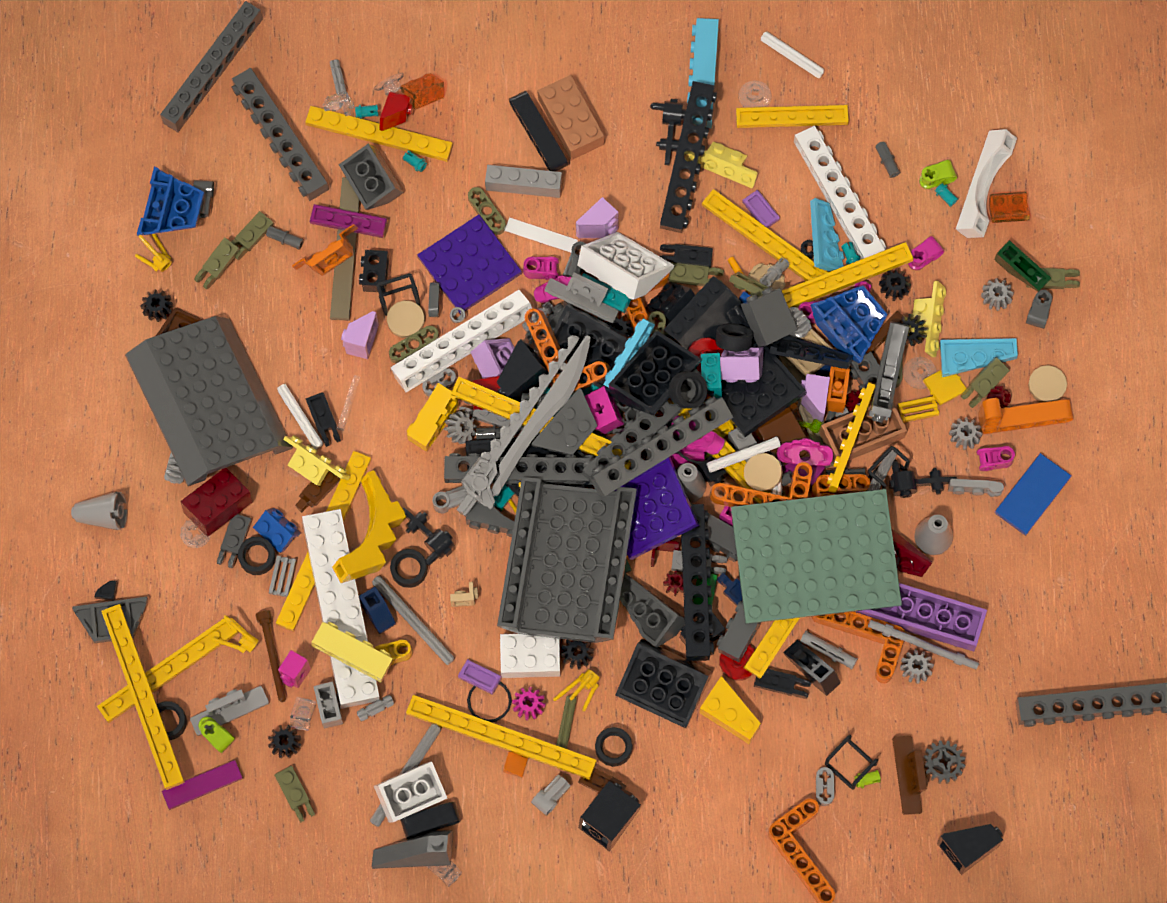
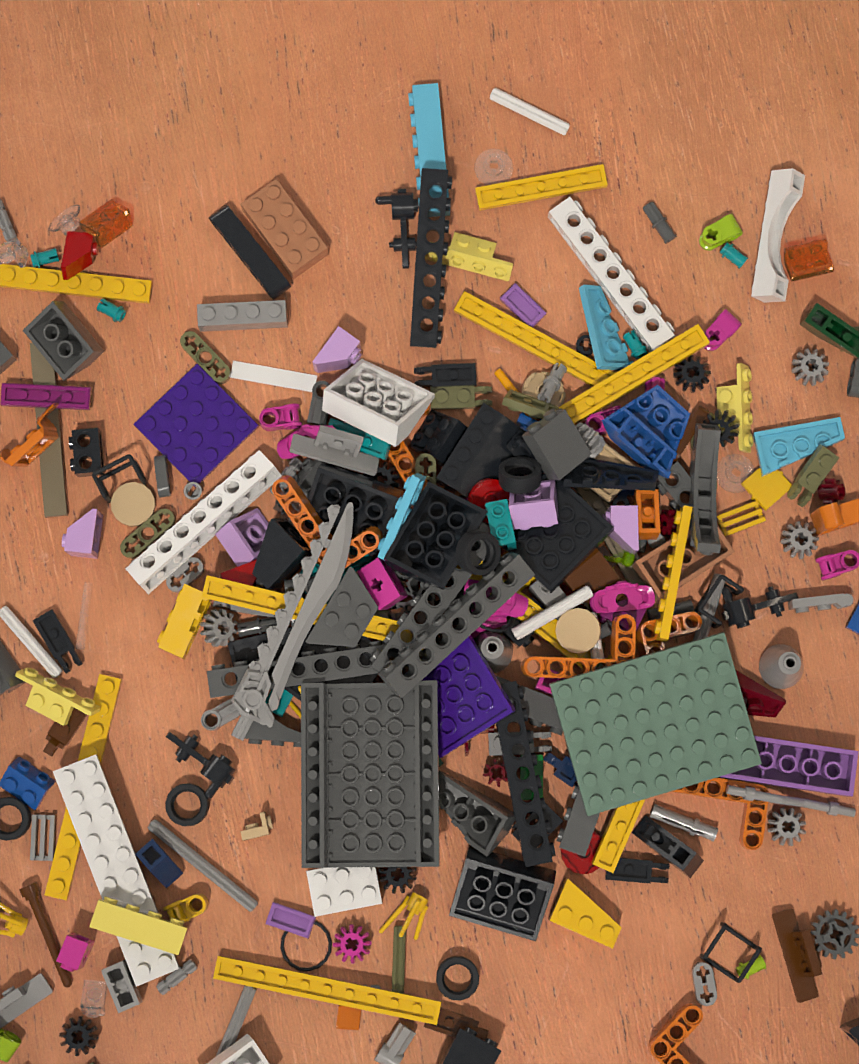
camera: 15 degrees left, 10 degrees up
(379, 536) = (146, 775): yellow arch -> none

